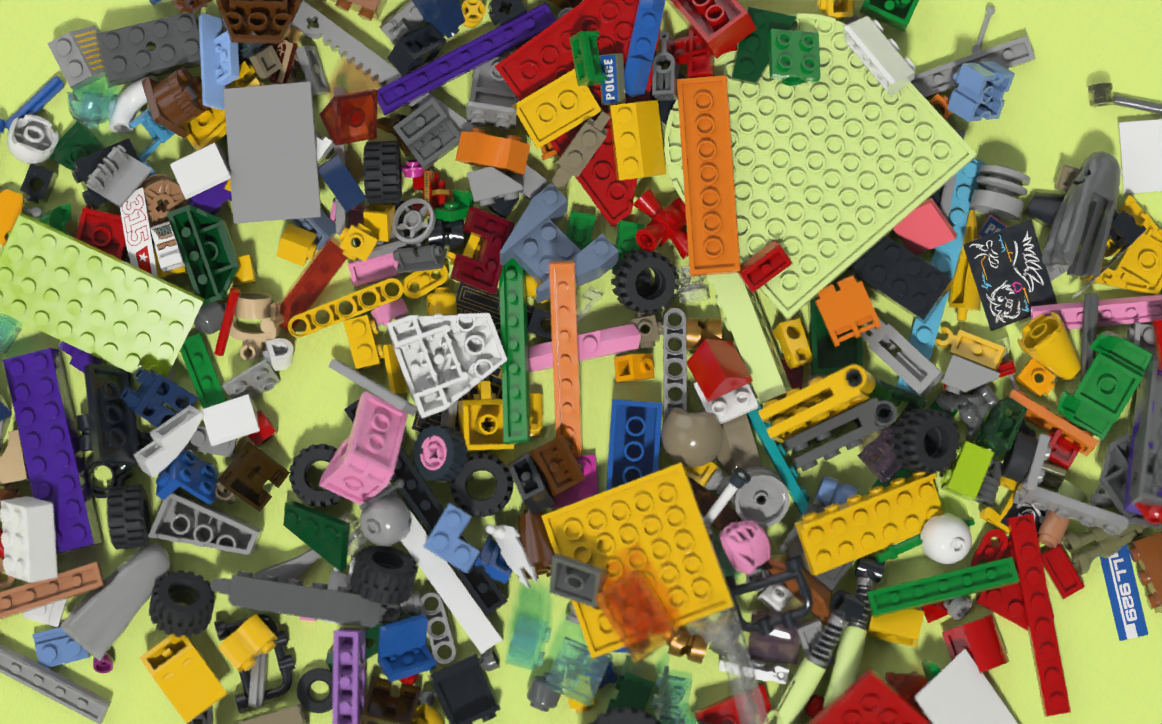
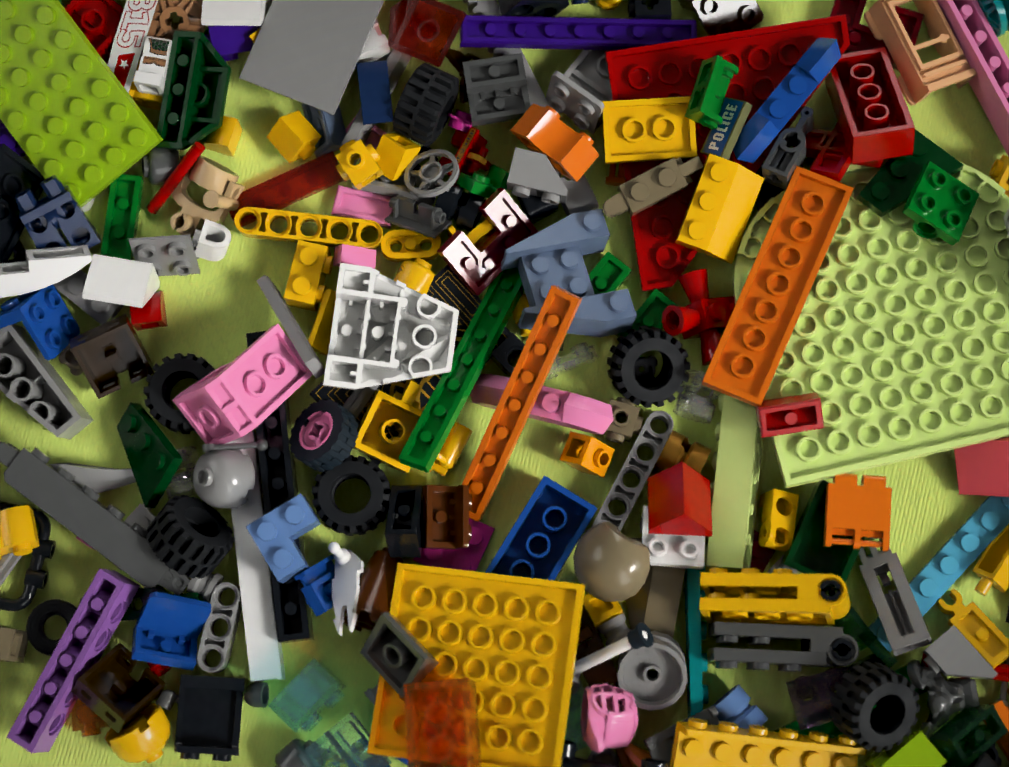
camera: 30 degrees right, 5 degrees down
(902, 278) = (937, 510): black brick -> none

